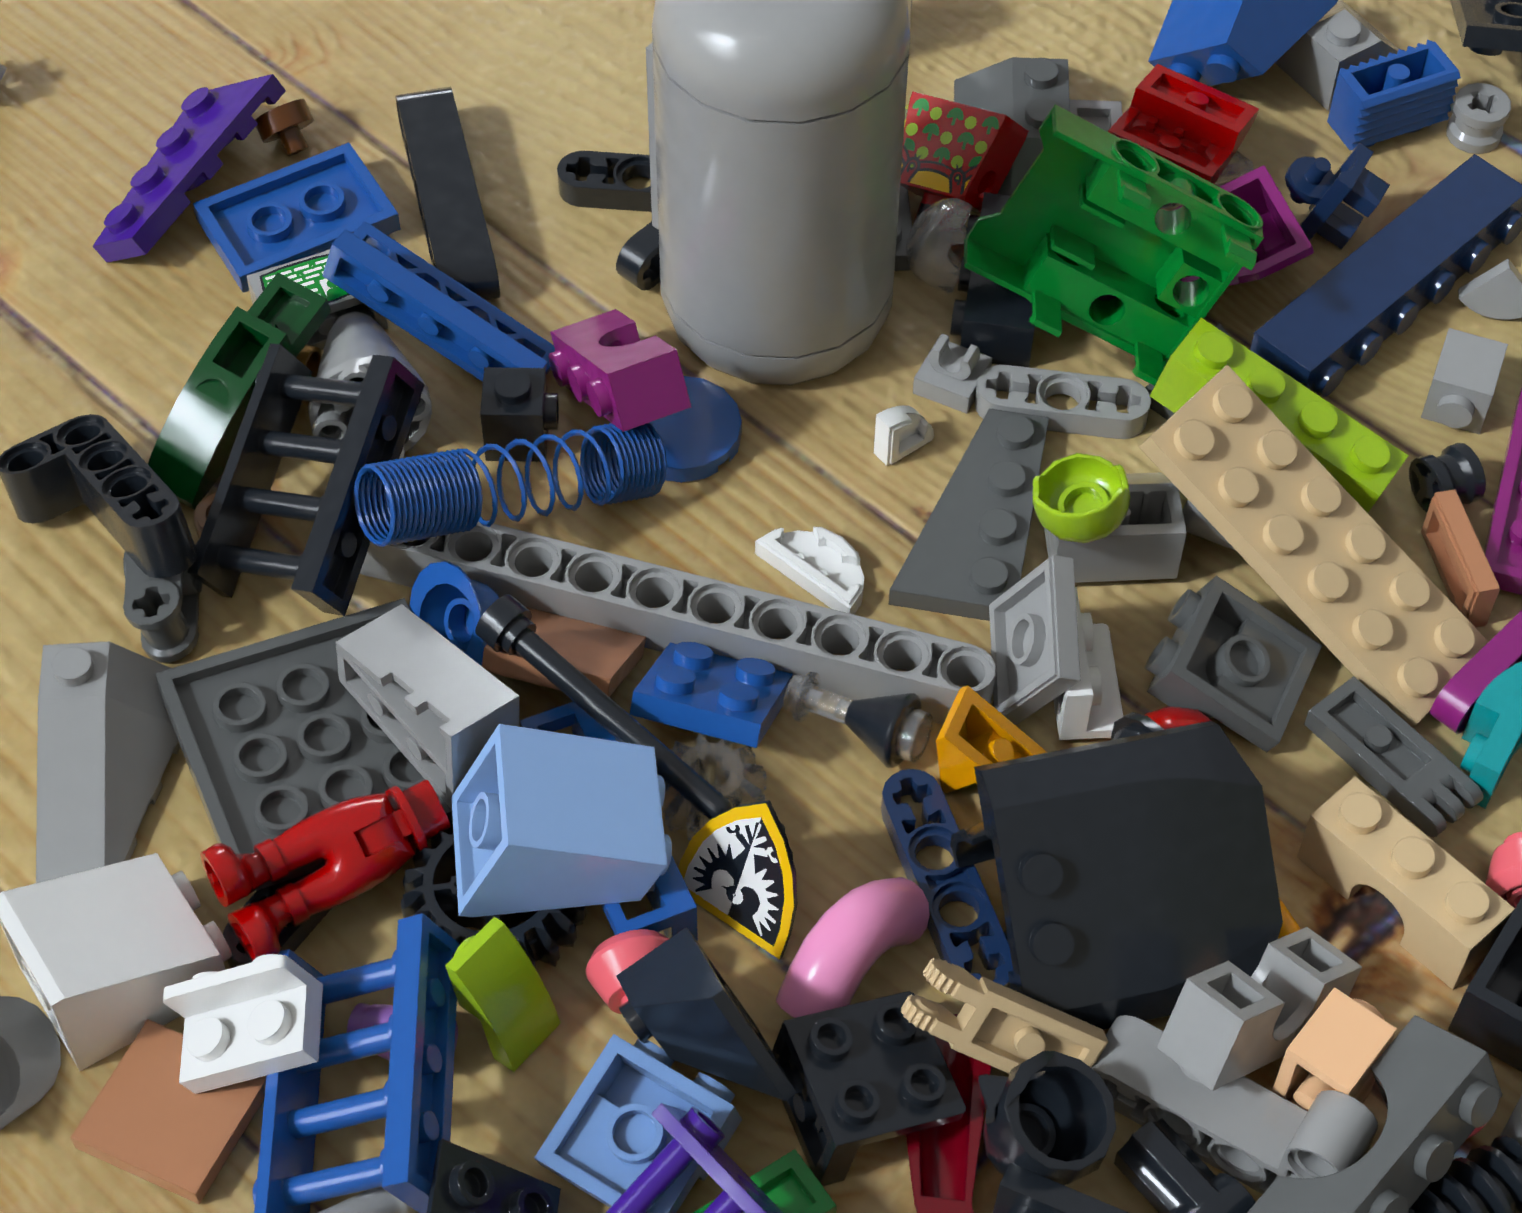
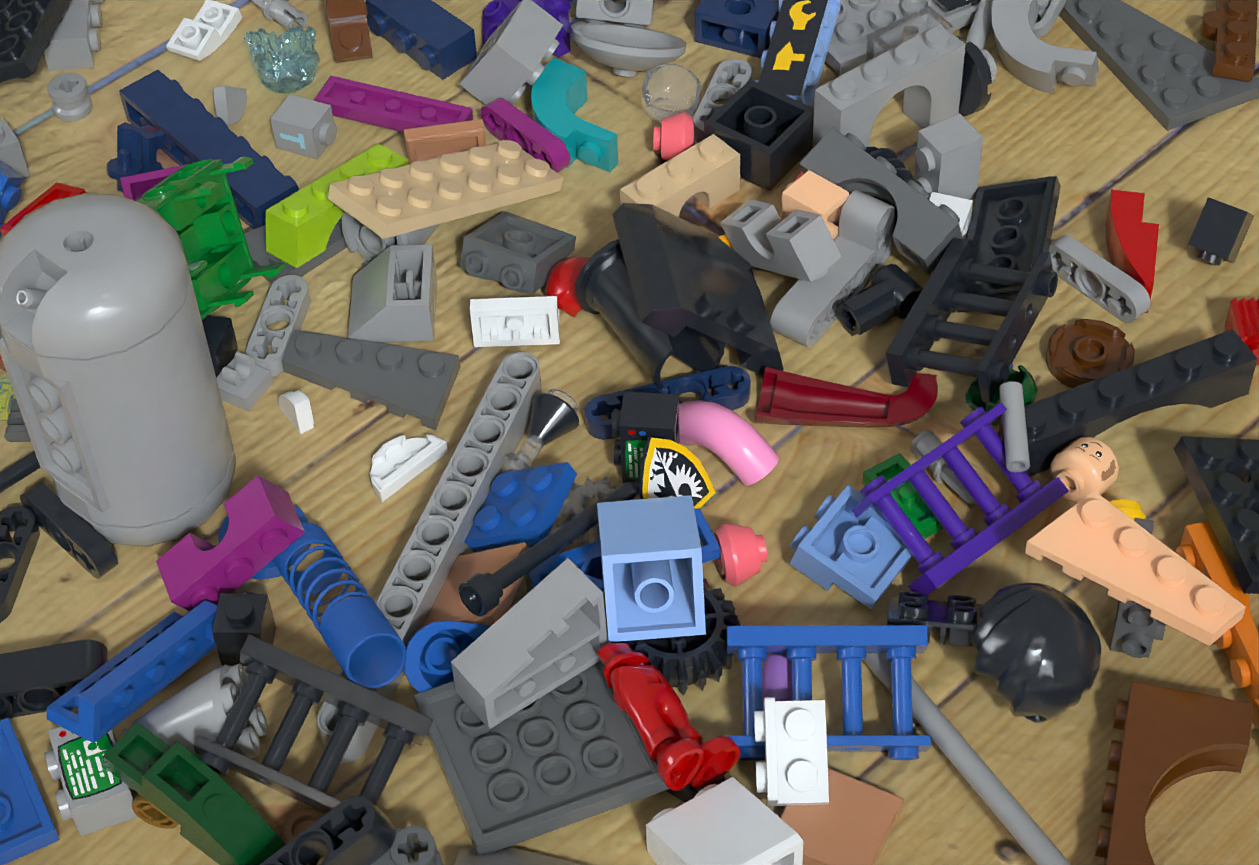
camera: 85 degrees left, 5 degrees down
(504, 992) = (757, 609): lime slope -> none
(698, 1017) = (787, 494): black slope -> none
(828, 833) = (642, 417): none -> black brick
(862, 1081) = (821, 439): black bracket -> none
(975, 737) = (578, 368): light orange slope -> none
(999, 1022) = (793, 354): tan hinge -> none
(1035, 639) = (504, 321): light grey tile -> none
(1048, 1117) = (853, 342): black piece -> none
(1081, 497) = (413, 276): lime hair -> none
(1393, 95) = (48, 127): blue brick -> none
(1393, 757) = (585, 190): dark grey hinge -> none
(1455, 469) = (381, 132): black wheel -> none

